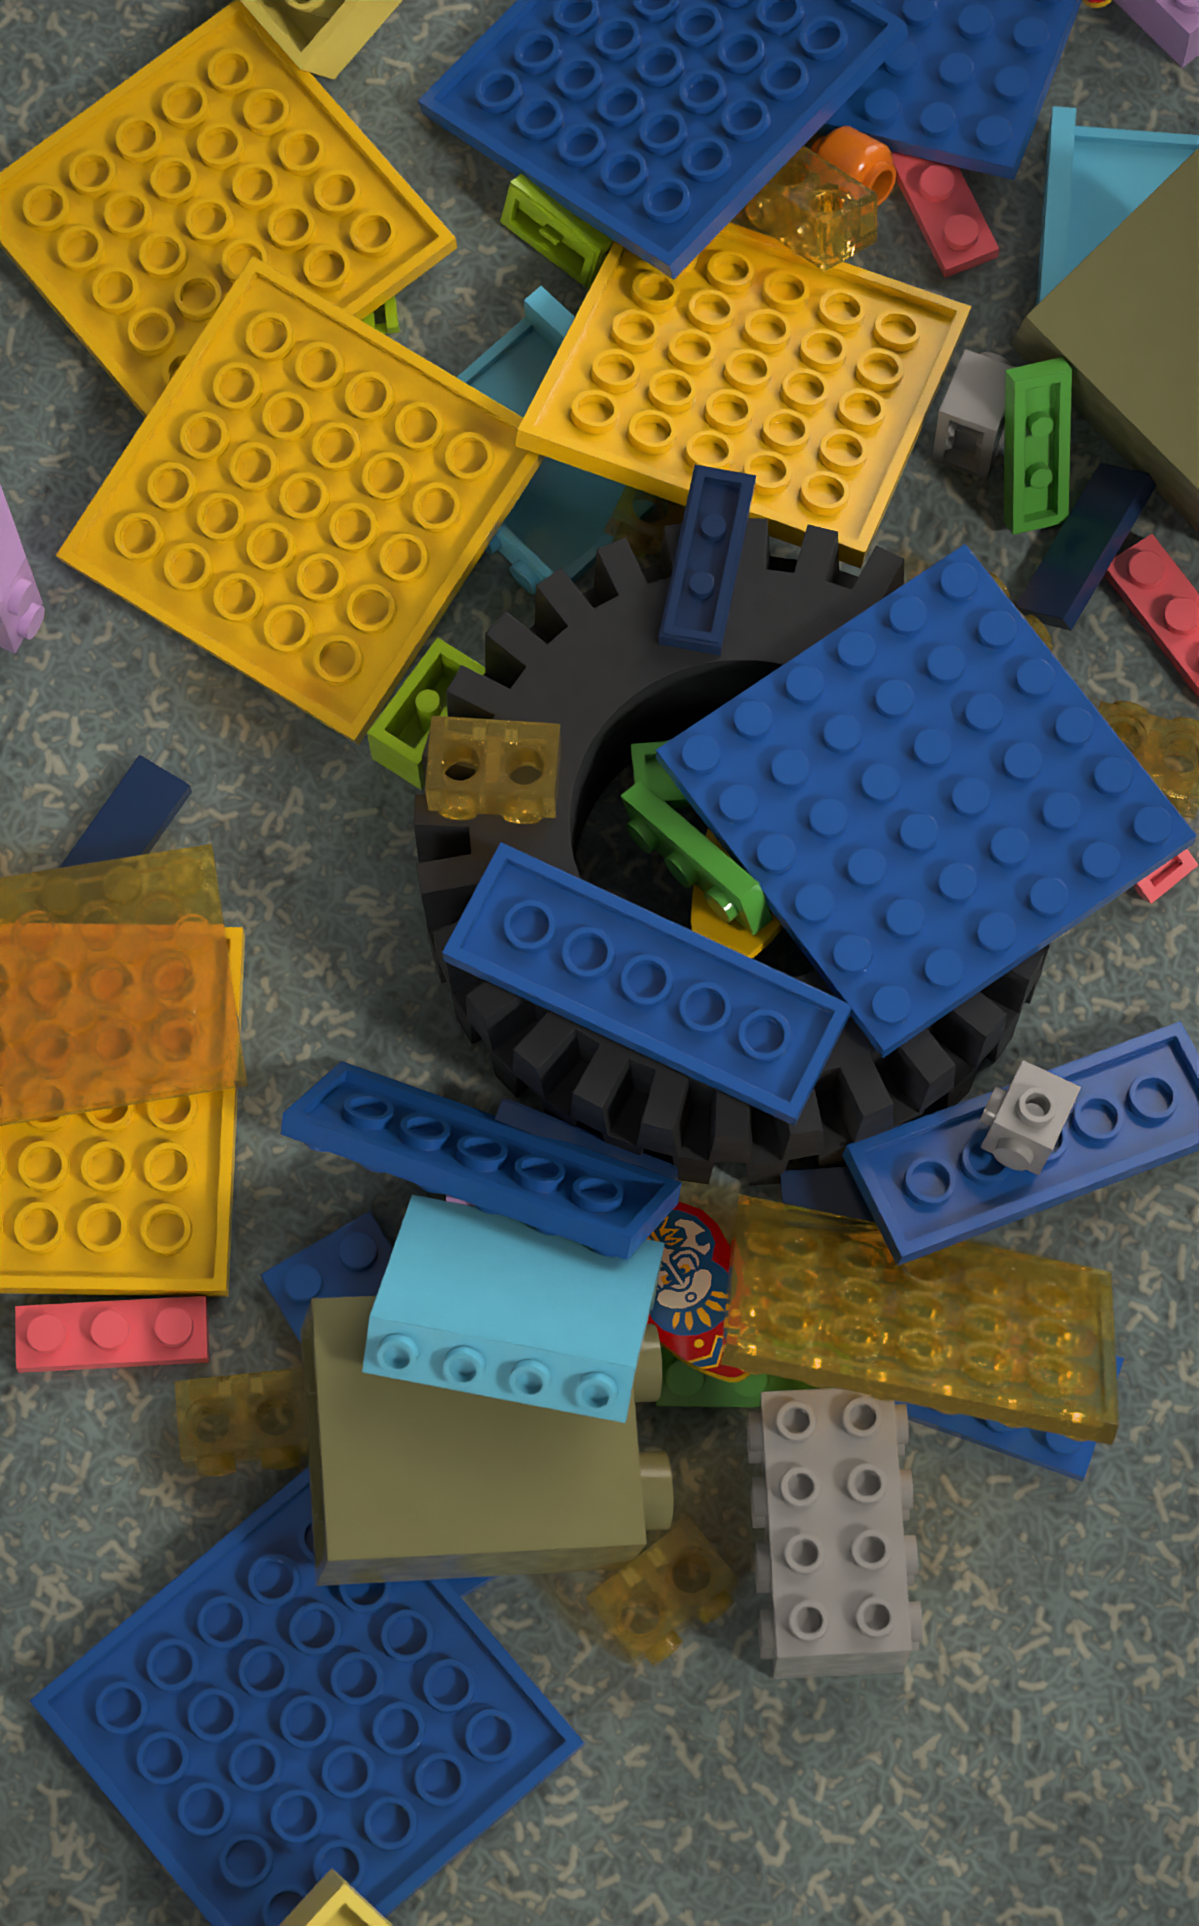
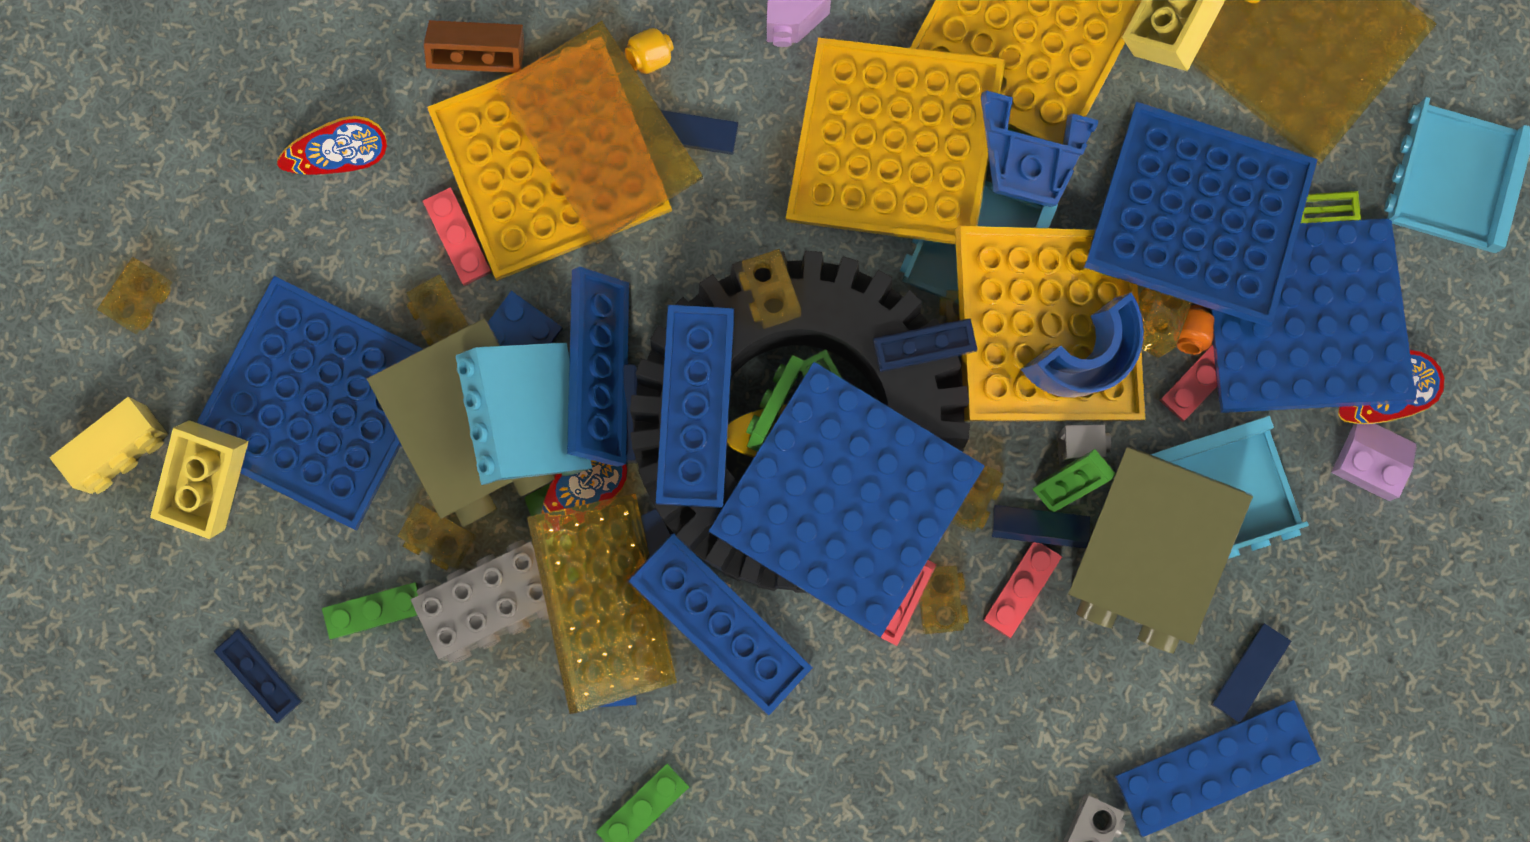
camera: 65 degrees right, 10 degrees up
(404, 725) = (798, 239): lime brick -> none
(450, 300) = (1029, 165): none -> blue wing
(554, 231) = (1094, 198): lime tile -> none
(750, 1775) = (370, 611): none -> bright green plate
(848, 293) = (1113, 357): none -> blue brick
(1027, 1117) = (721, 612): light grey brick -> none

